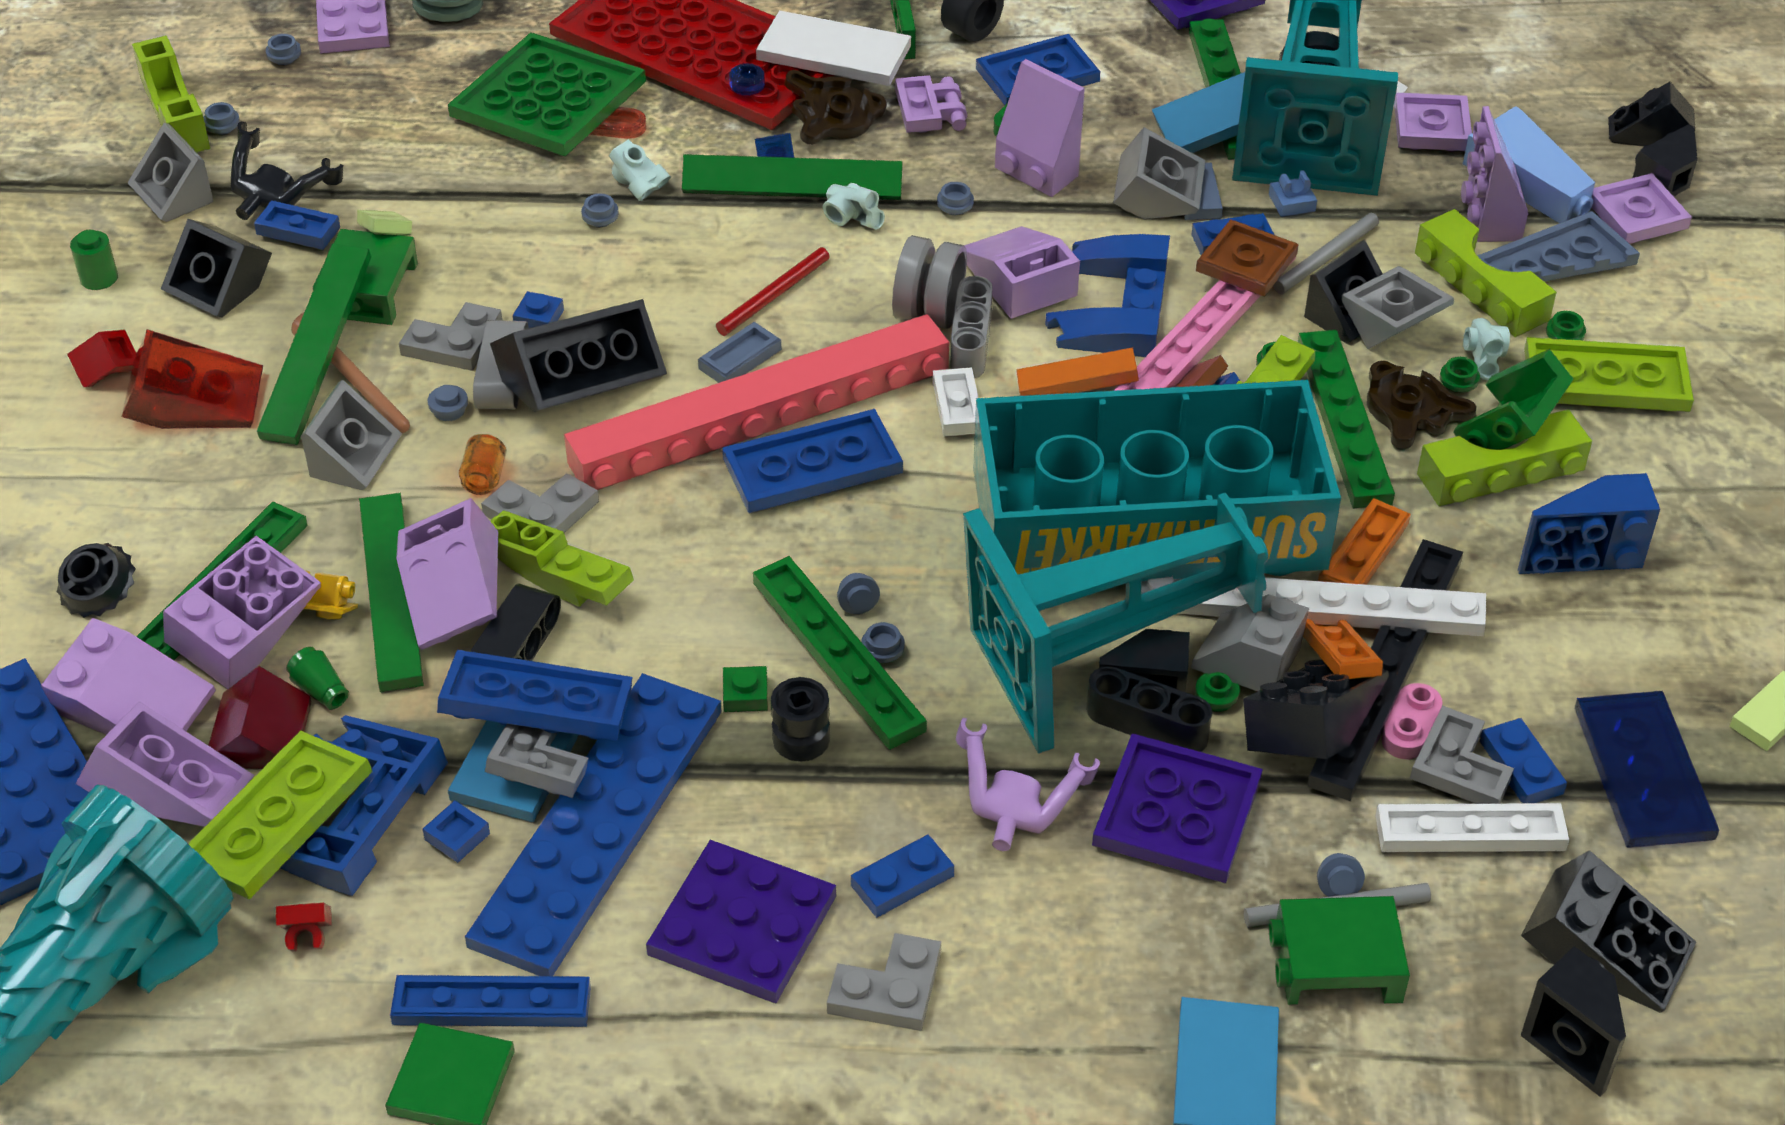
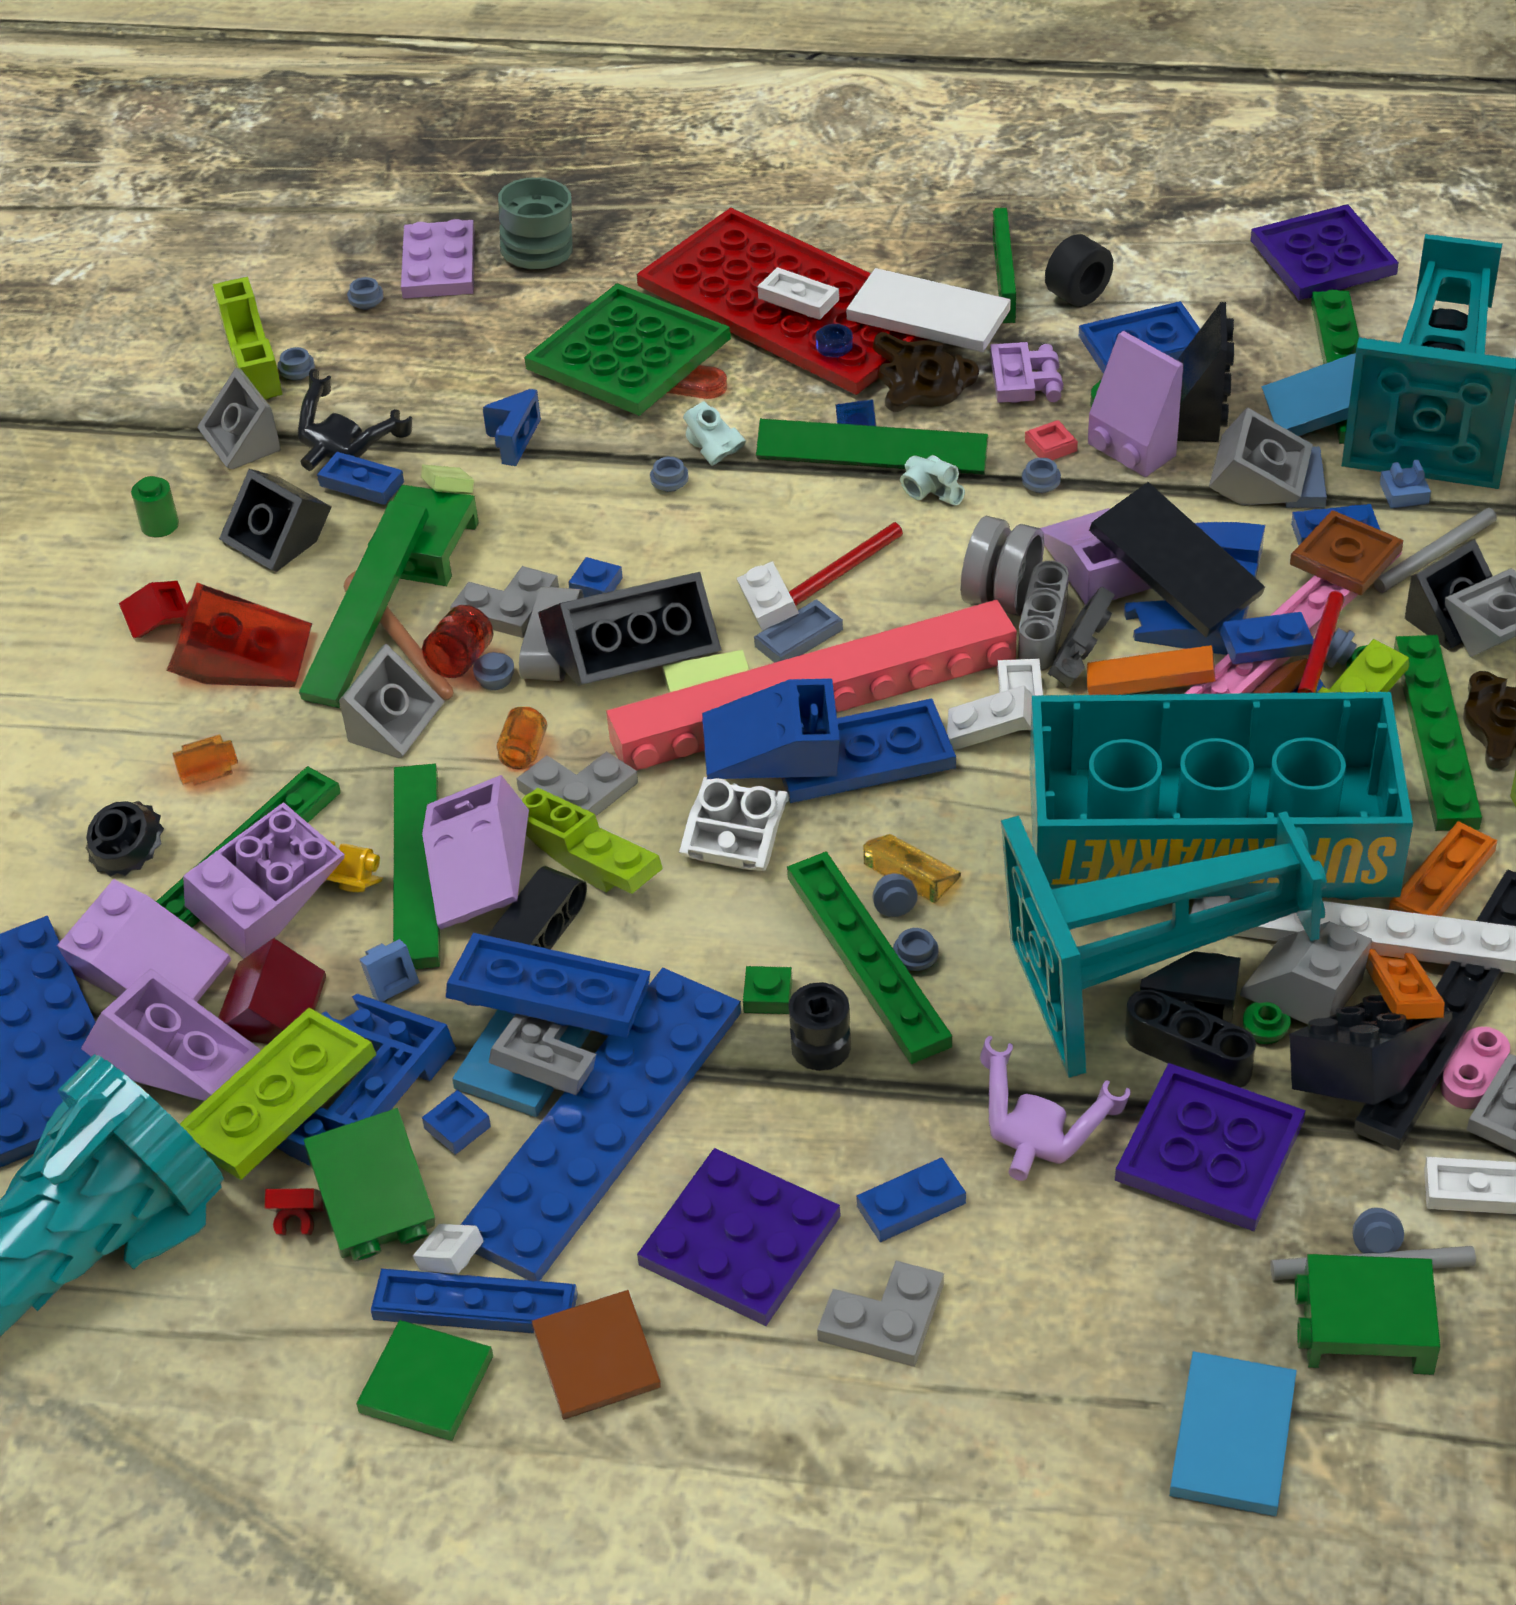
camera: 10 degrees right, 0 degrees up
(169, 500) = (205, 760): none -> clear orange brick
(316, 676) = (333, 952): green cone -> none
(375, 690) = (389, 970): none -> medium blue tile
(380, 895) = (370, 1184): none -> green panel
(410, 375) = (457, 641): none -> clear red wheel
(442, 168) = (512, 423): none -> blue slope
(461, 951) = (448, 1248): none -> white plate
(615, 1041) = (595, 1354): none -> dark orange tile
(652, 392) = (704, 669): none -> yellowish green tile
(697, 535) = (733, 824): none -> white slope
(707, 319) = (767, 595): none -> white plate
(708, 36) = (798, 293): none -> white plate
(730, 447) = (774, 733): none -> blue slope
(851, 557) = (893, 855): none -> clear yellow slope
(931, 423) = (989, 717): none -> white plate
(961, 166) = (1051, 440): none -> coral tile
(1007, 347) = (1079, 640): none -> dark grey hinge
(1093, 269) = (1177, 559): none -> black tile
(1104, 102) = (1205, 381): none -> black slope
(1182, 338) = (1266, 637): none -> blue plate
(1234, 339) = (1321, 643): none -> red bar
(1248, 345) = (1340, 647): none -> sand blue plate

